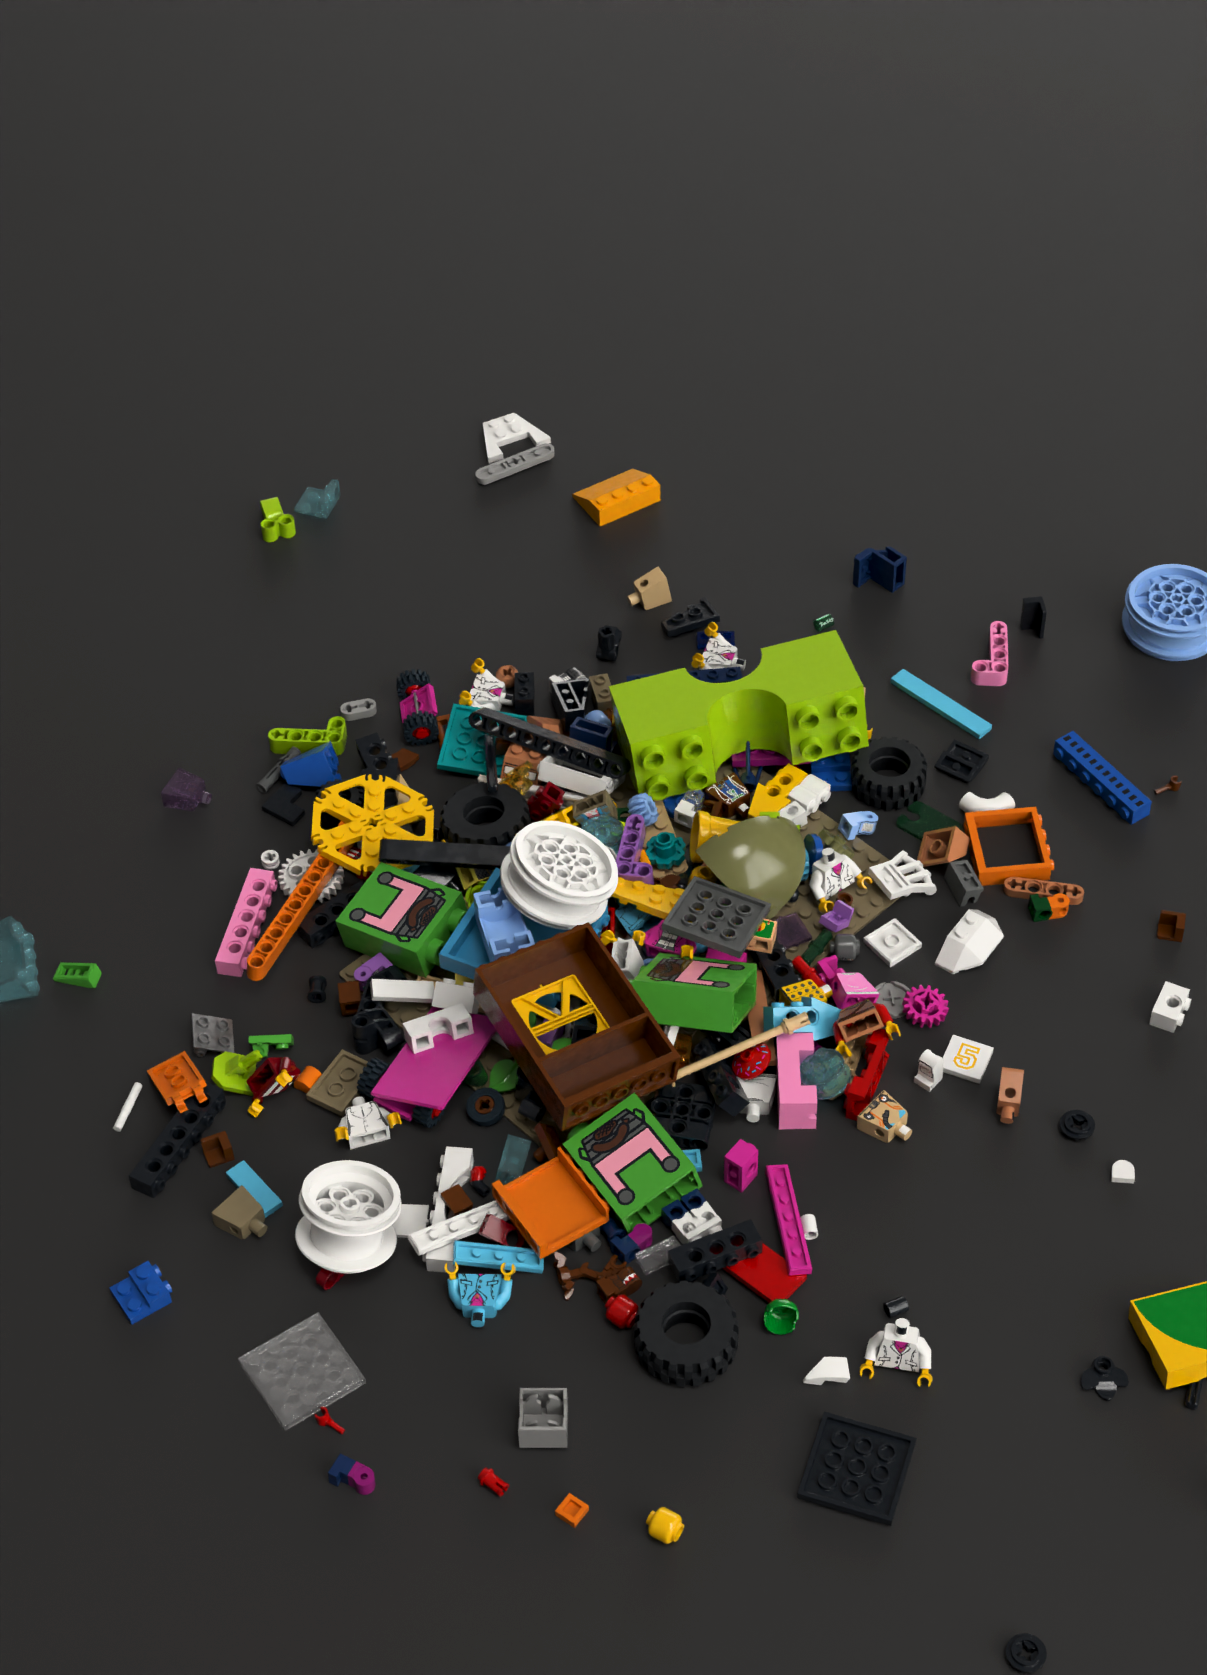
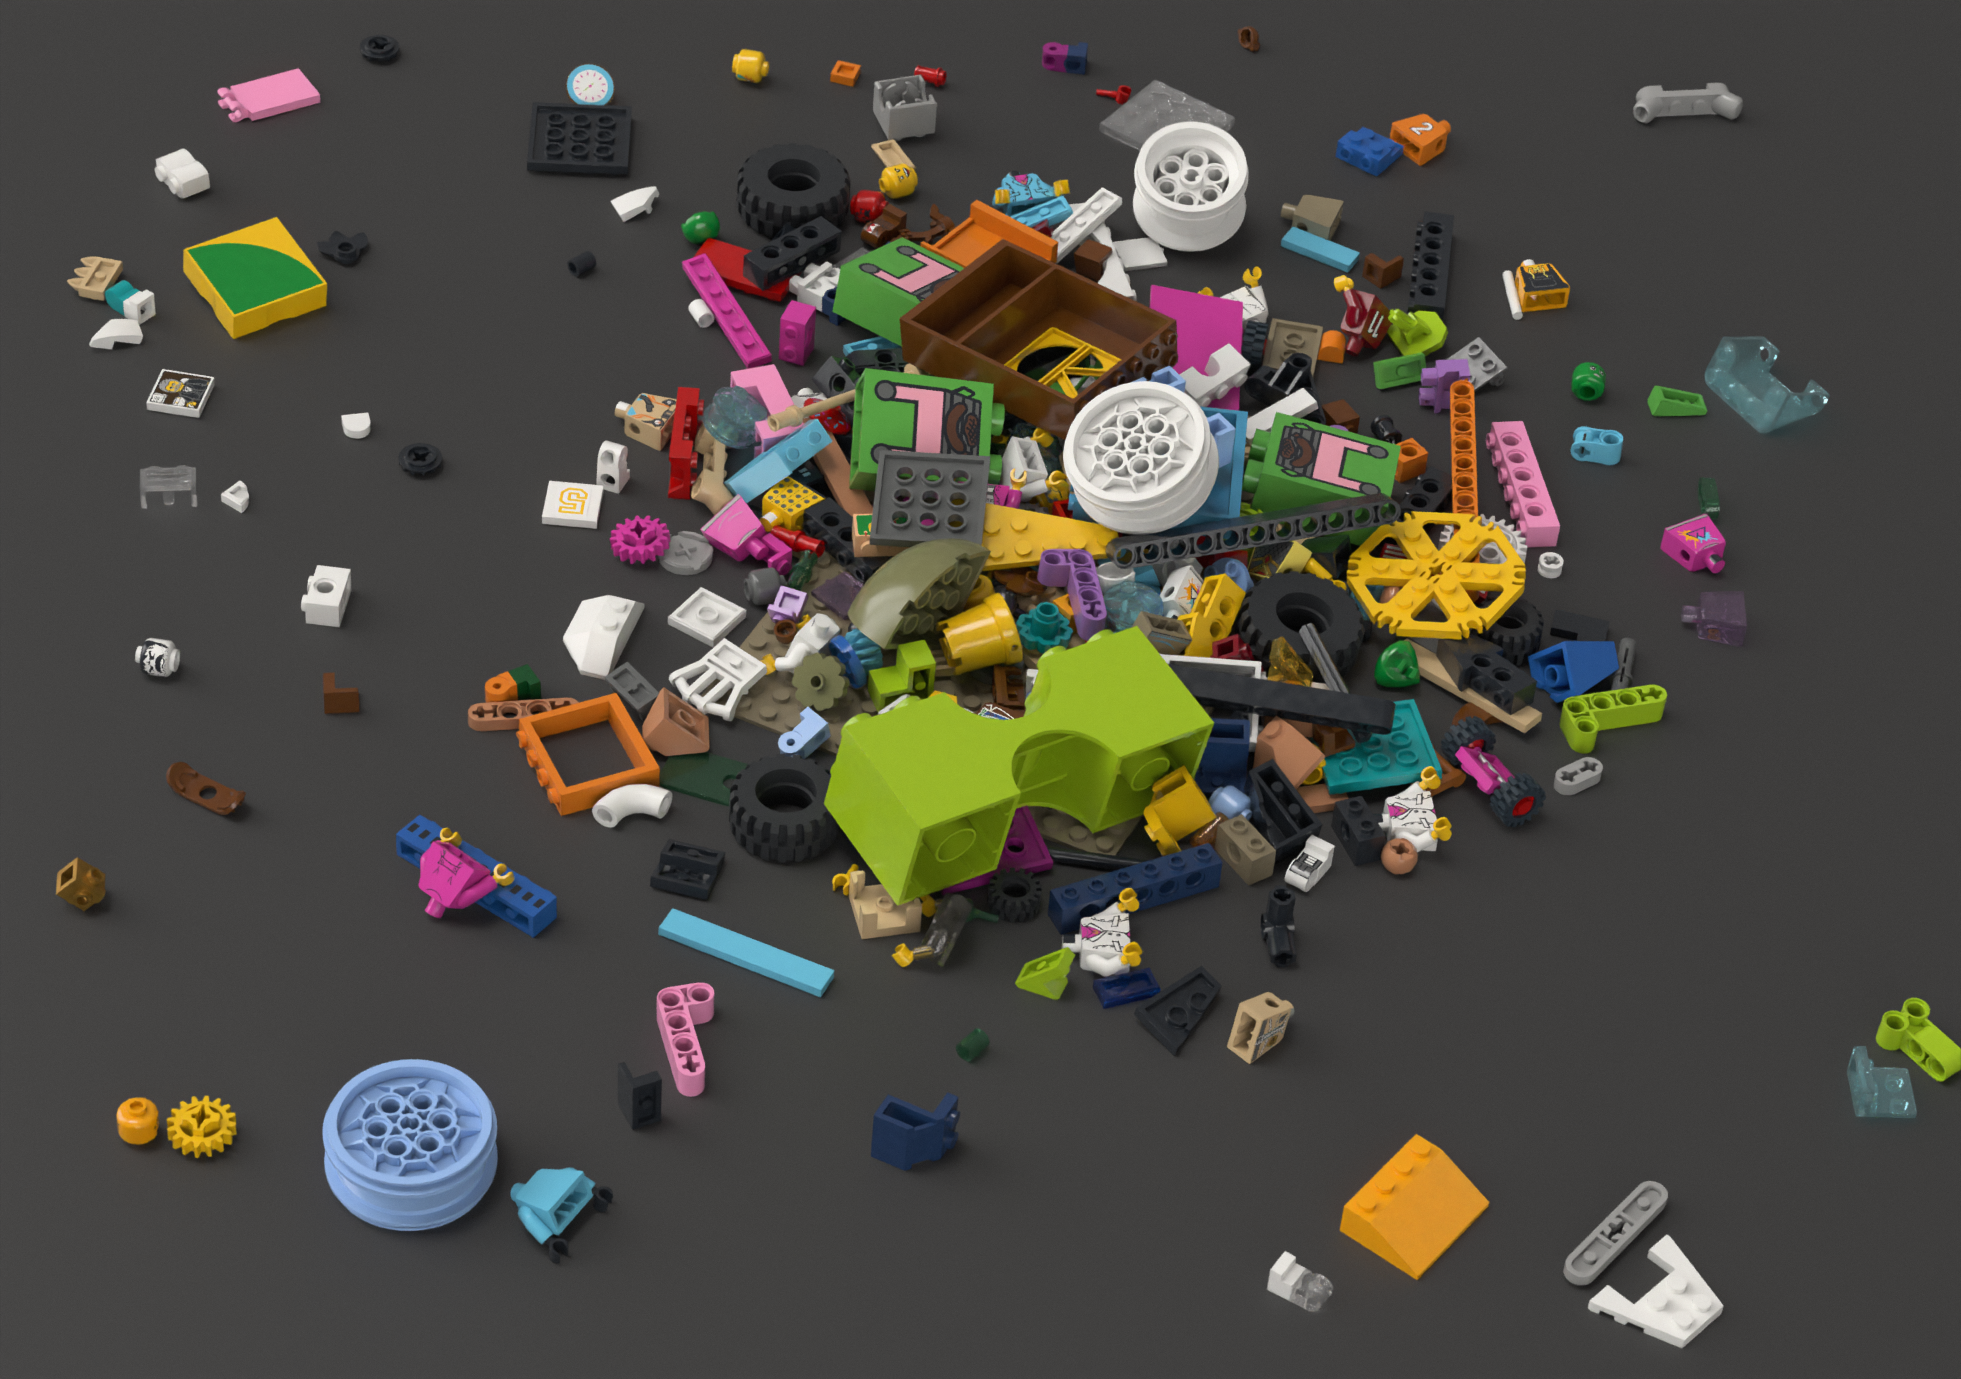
camera: 155 degrees right, 5 degrees down
(87, 1291) = (1421, 137): none -> orange torso
(104, 1100) = (1540, 287): none -> torso
(120, 883) = (1708, 497): none -> clear green beam
(134, 998) = (1588, 381): none -> green head
(158, 848) = (1695, 544): none -> dark pink torso
(161, 1467) = (1249, 38): none -> reddish brown piece
(168, 942) = (1600, 445): none -> medium azure piece
(178, 1080) = (1469, 304): orange tile -> none
(250, 1007) = (1441, 378): none -> medium lavender hips
(318, 959) = (1411, 460): none -> orange brick
(435, 796) = (1397, 666): none -> green piece
(573, 1379) = (891, 154): none -> tan tile
(583, 1337) = (898, 181): none -> yellow head
(698, 471) = (1298, 1284): none -> leg
(758, 640) = (1047, 974): none -> lime slope
(830, 1531) = (590, 85): none -> piece
(861, 1020) = (707, 457): torso -> none
(899, 1348) = (565, 216): white torso -> none
(1009, 1094) = (509, 454): nougat torso -> none
(1095, 579) = (553, 1200): none -> medium azure torso
(1118, 756) = (455, 877): none -> dark pink torso
(1147, 1605) = (269, 96): none -> bright pink tile
(1173, 785) = (369, 894): reddish brown hand -> none

